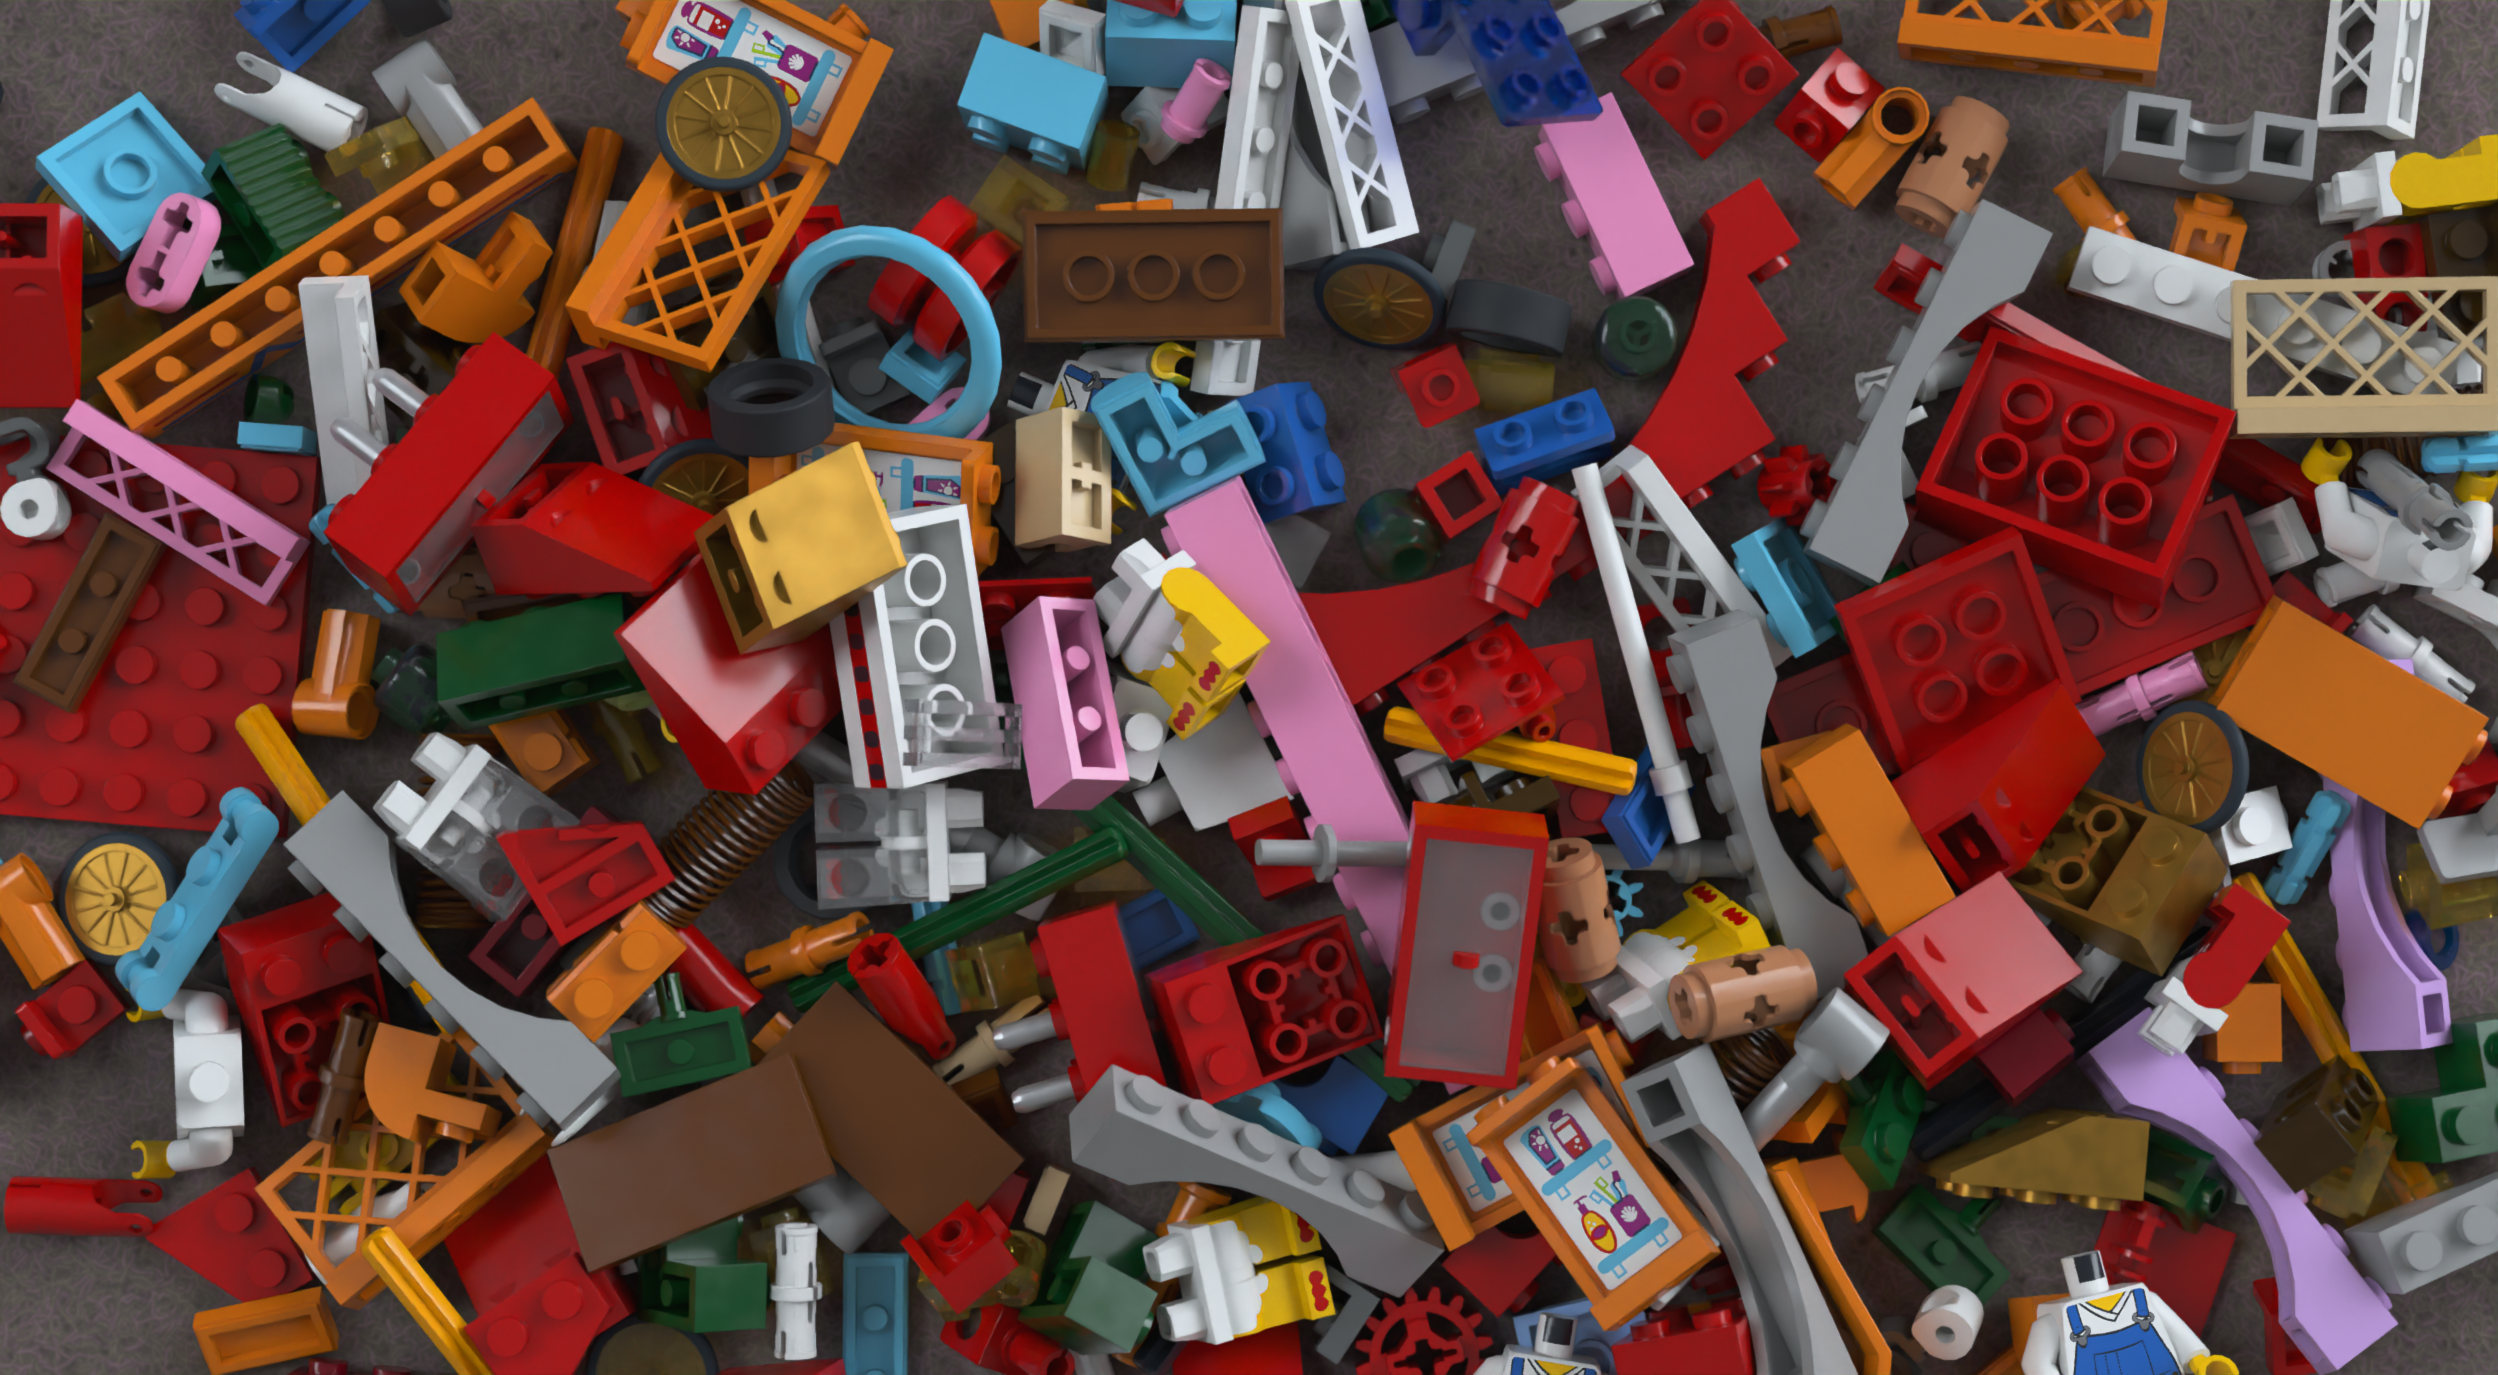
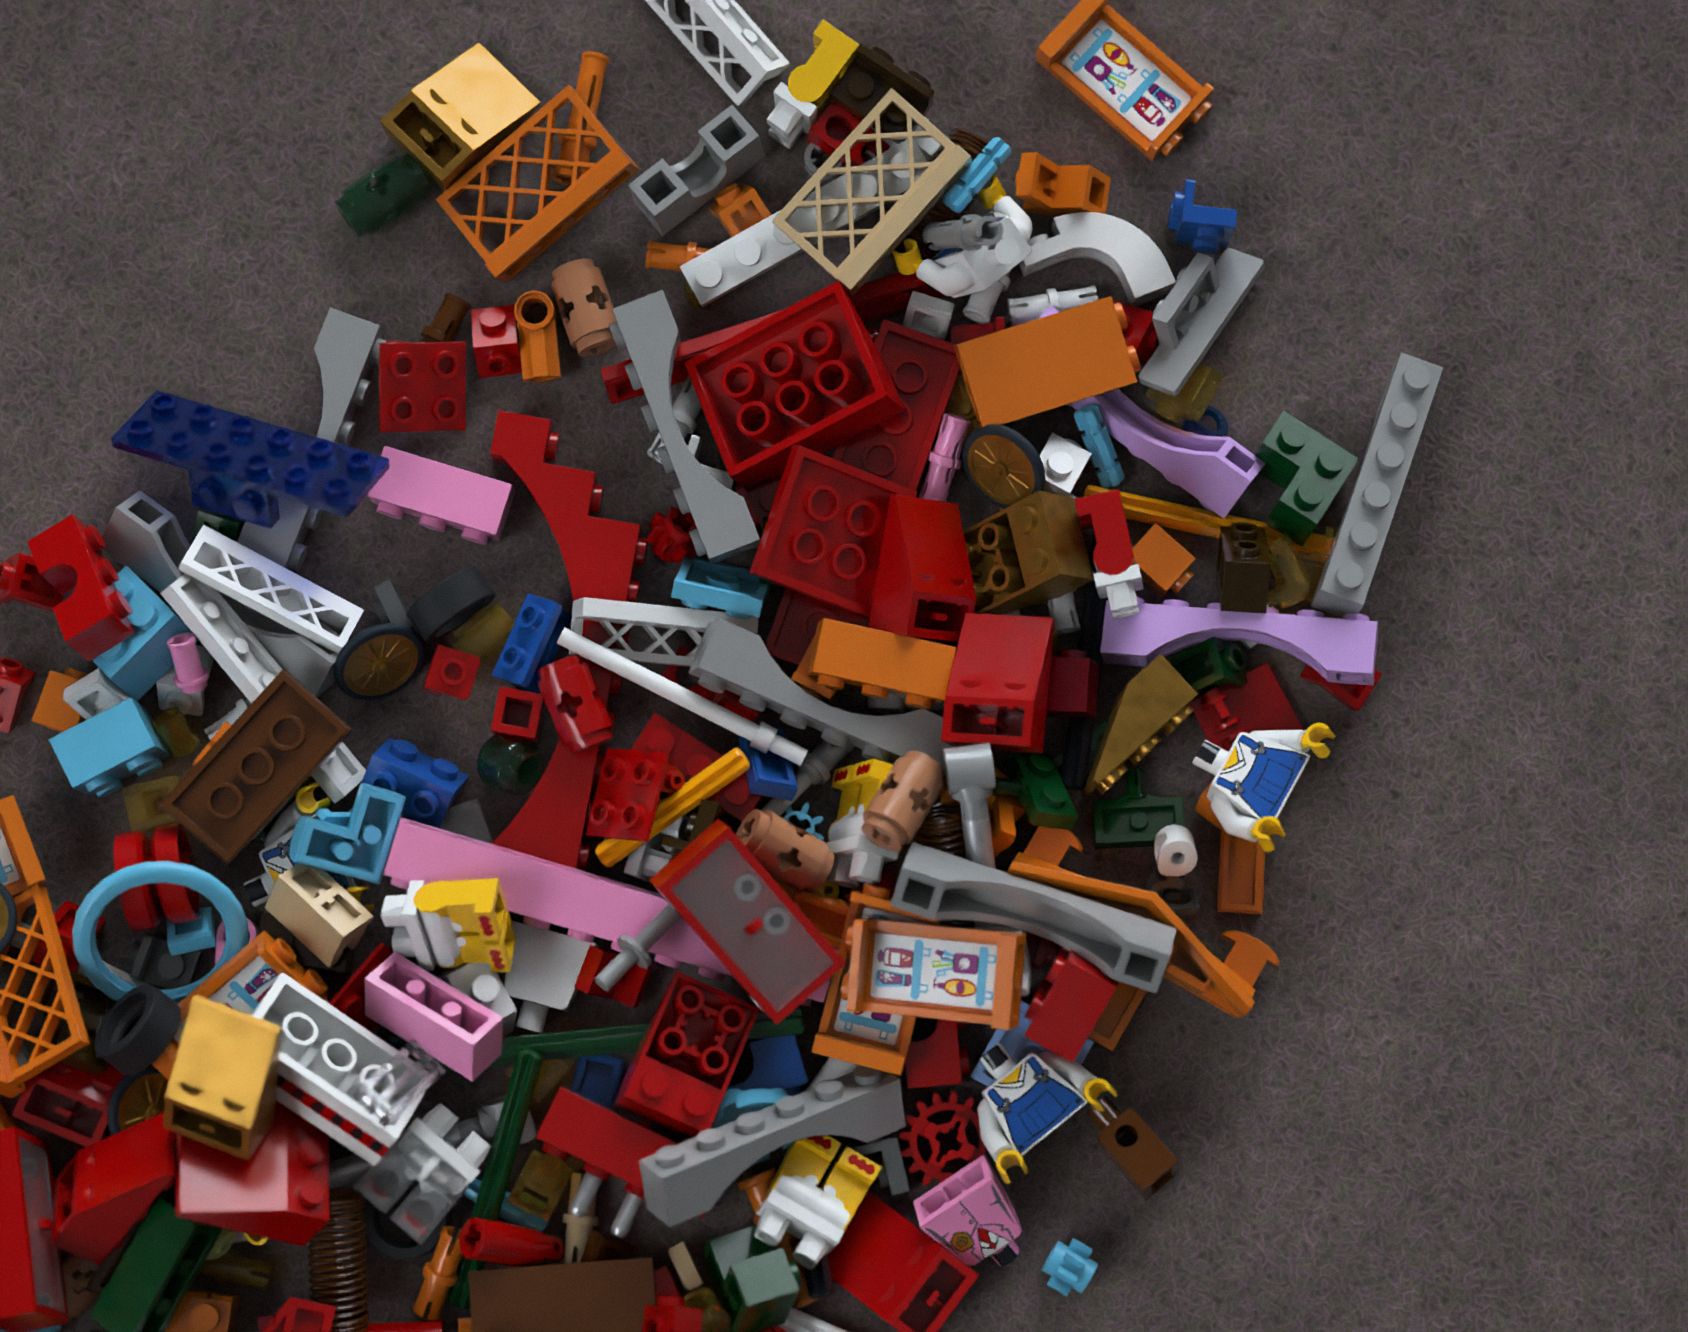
camera: 45 degrees left, 5 degrees down
(1627, 360) = (533, 560): clear green head -> none

